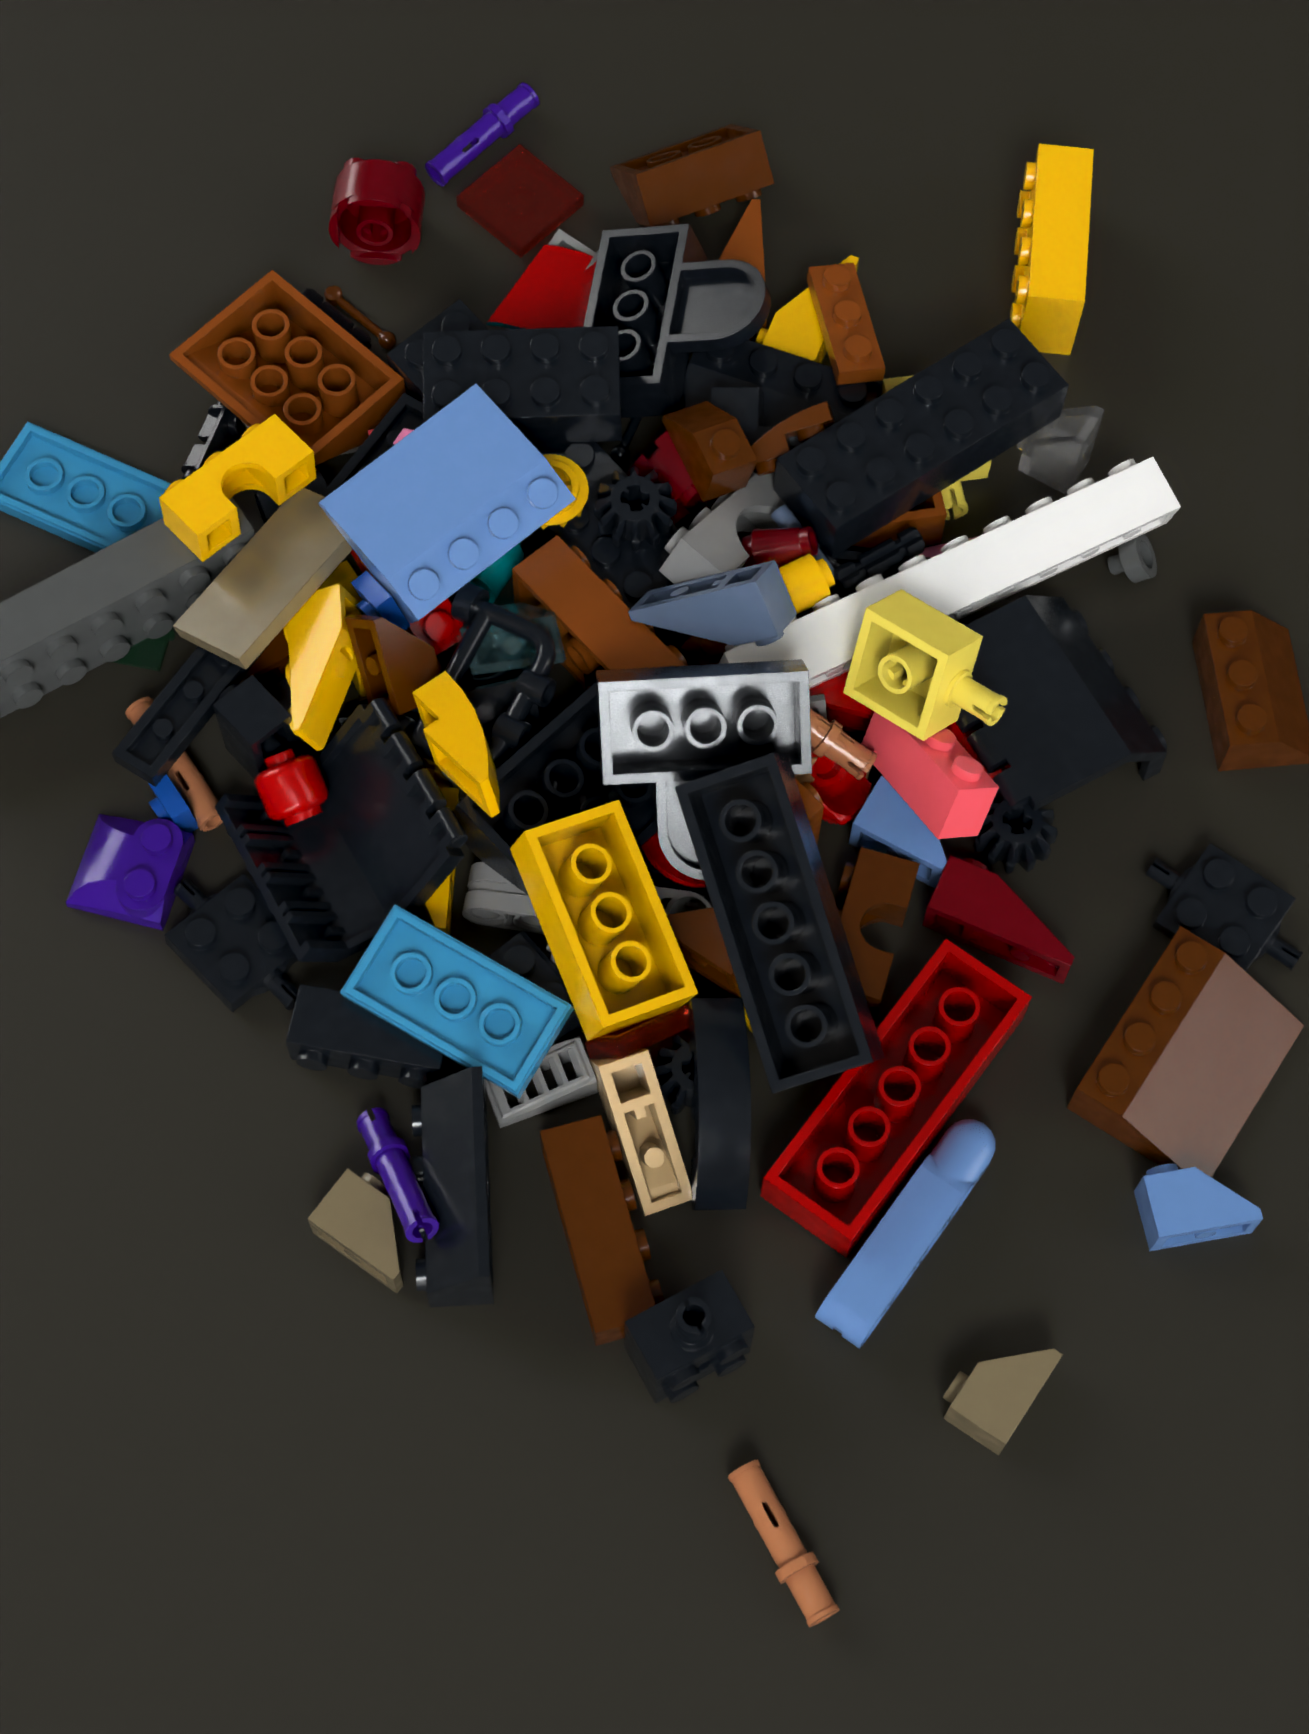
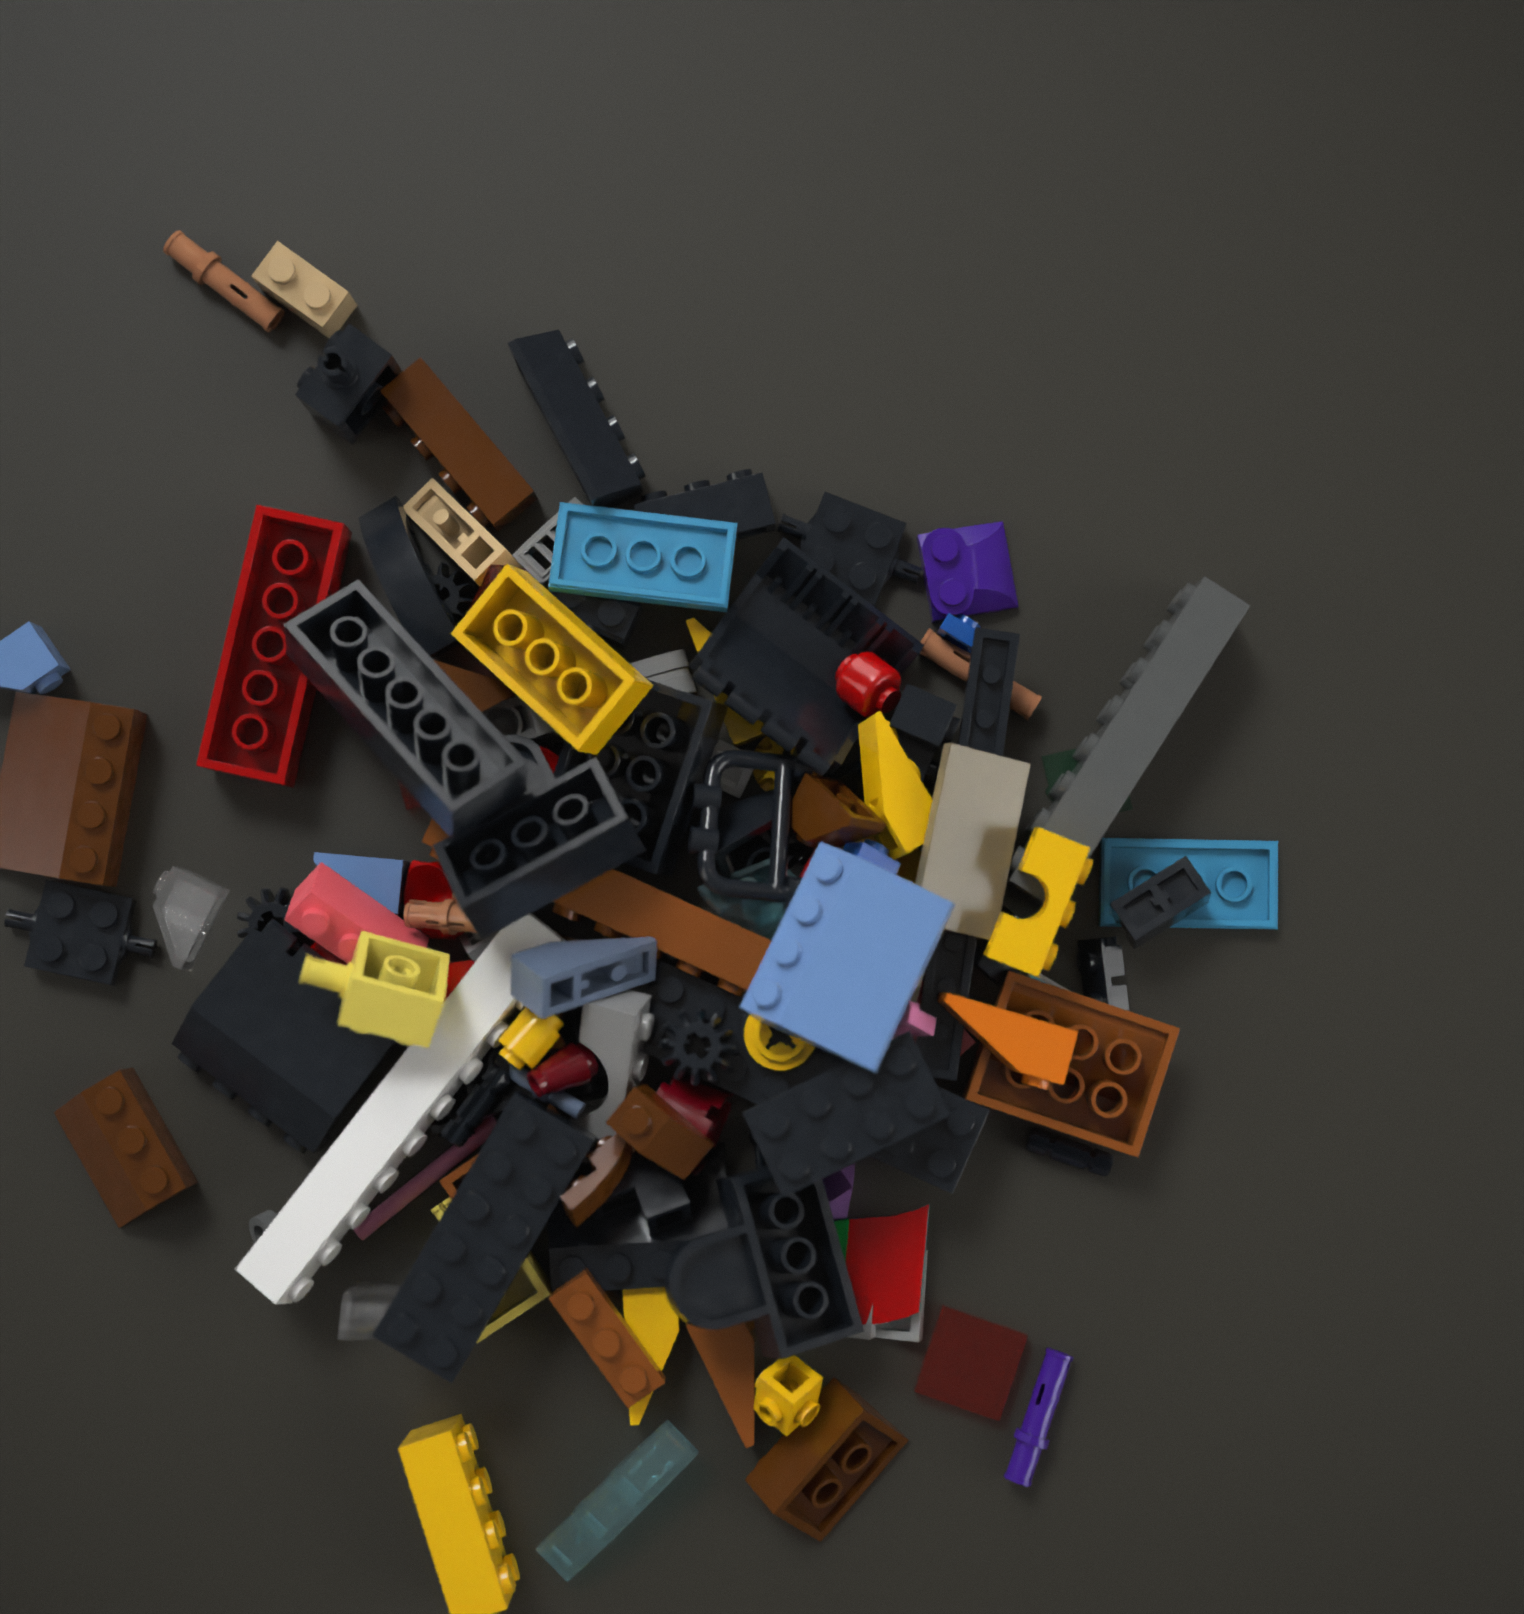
camera: 155 degrees right, 20 degrees up
(120, 469) = (1160, 902): none -> black hinge
(316, 385) = (1020, 1042): none -> orange slope
(334, 295) = (1085, 1183): reddish brown hinge -> none
(361, 1226) = (636, 365): dark tan slope -> none
(377, 210) = (1084, 1276): dark red brick -> none
(390, 1160) = (641, 424): dark purple pin -> none
(458, 740) = (734, 754): yellow slope -> none
(693, 1480) = (304, 290): none -> tan brick
(706, 210) = (787, 1394): none -> yellow brick
(876, 892) = (367, 818): reddish brown arch -> none
(890, 216) = (617, 1500): none -> clear light blue slope
(908, 1231) = (236, 489): medium blue piece -> none
(988, 915) = (270, 840): dark red slope -> none
(998, 1395) = (107, 456): dark tan slope -> none
(1100, 882) = (186, 912): none -> clear slope

